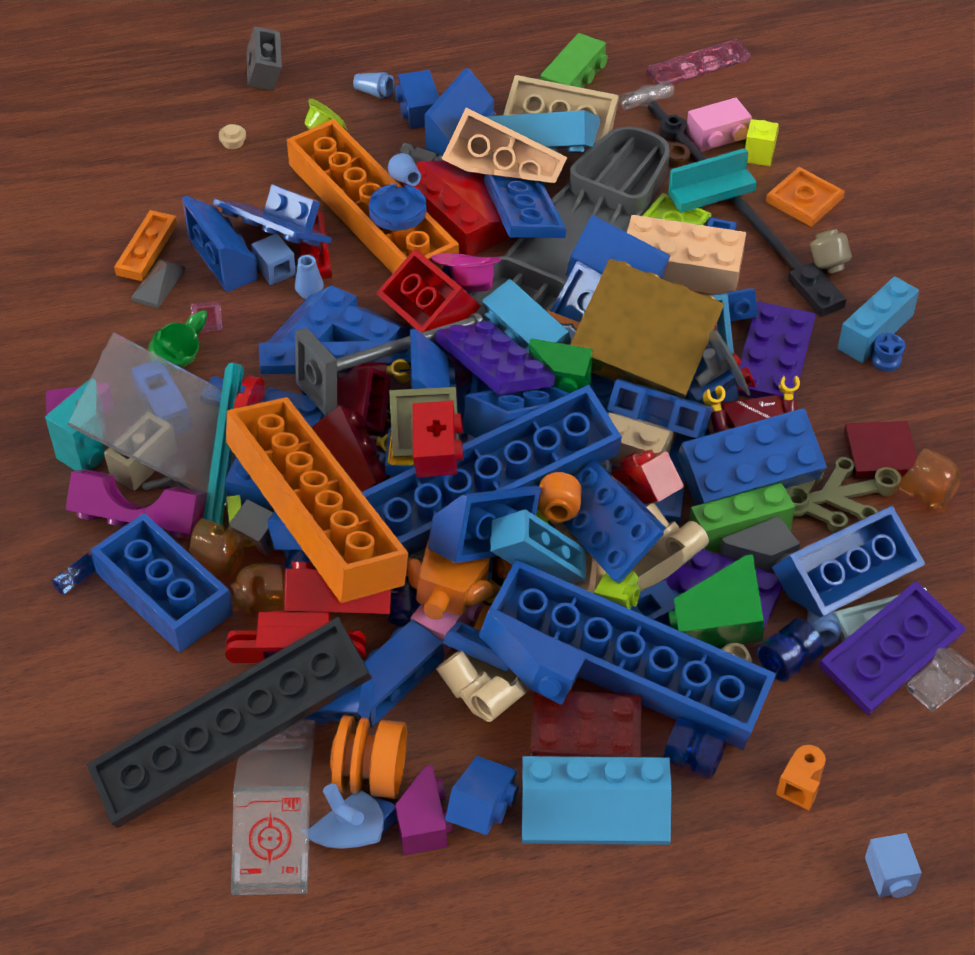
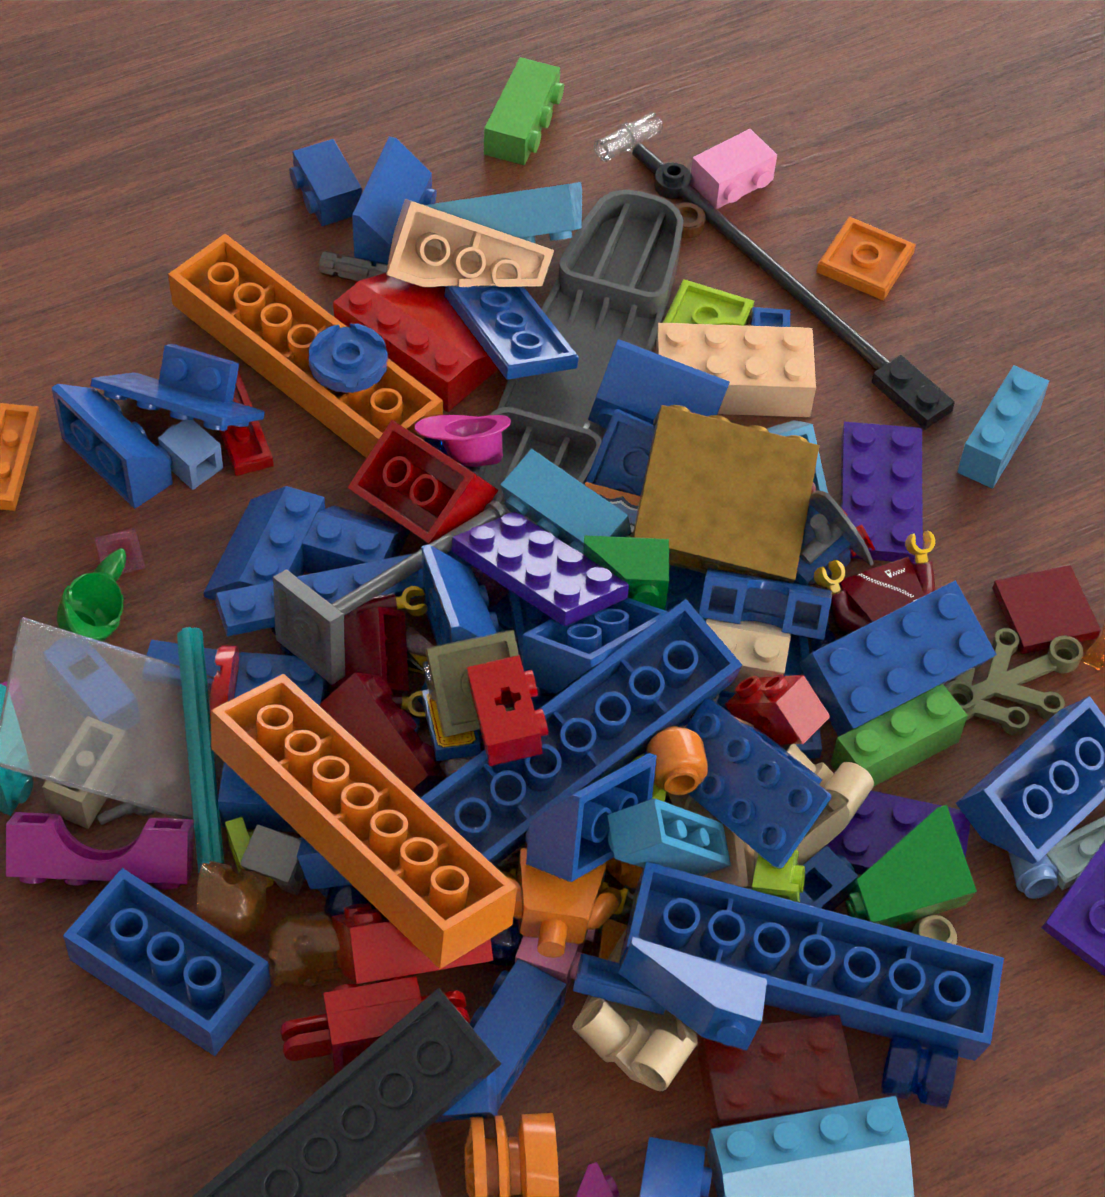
camera: 15 degrees left, 5 degrees up
(75, 574) = (43, 961): clear blue axle -> none
(158, 283) = (36, 510): dark grey slope -> none
(232, 136) = (82, 271): tan plate -> none
(263, 58) = (98, 148): dark grey brick -> none
(308, 277) = (246, 475): medium blue cone -> none
(319, 114) = (201, 228): lime piece -> none
(375, 84) = (259, 166): medium blue cone -> none
(403, 169) = (345, 301): medium blue cone -> none
(542, 96) = (505, 165): tan slope -> none
(699, 62) = (682, 78): clear pink tile -> none
(710, 181) = (746, 257): teal panel -> none
(742, 304) = (830, 429): blue bracket -> none
(761, 141) = (794, 189): neon yellow slope -> none
(767, 542) = (936, 773): dark grey slope -> none
(790, 649) = (1003, 913): clear blue wheel -> none
(802, 776) = (1054, 1084): orange leg -> none
(831, 250) = (921, 336): dark tan head -> none
(888, 352) = (1032, 466): blue wheel -> none

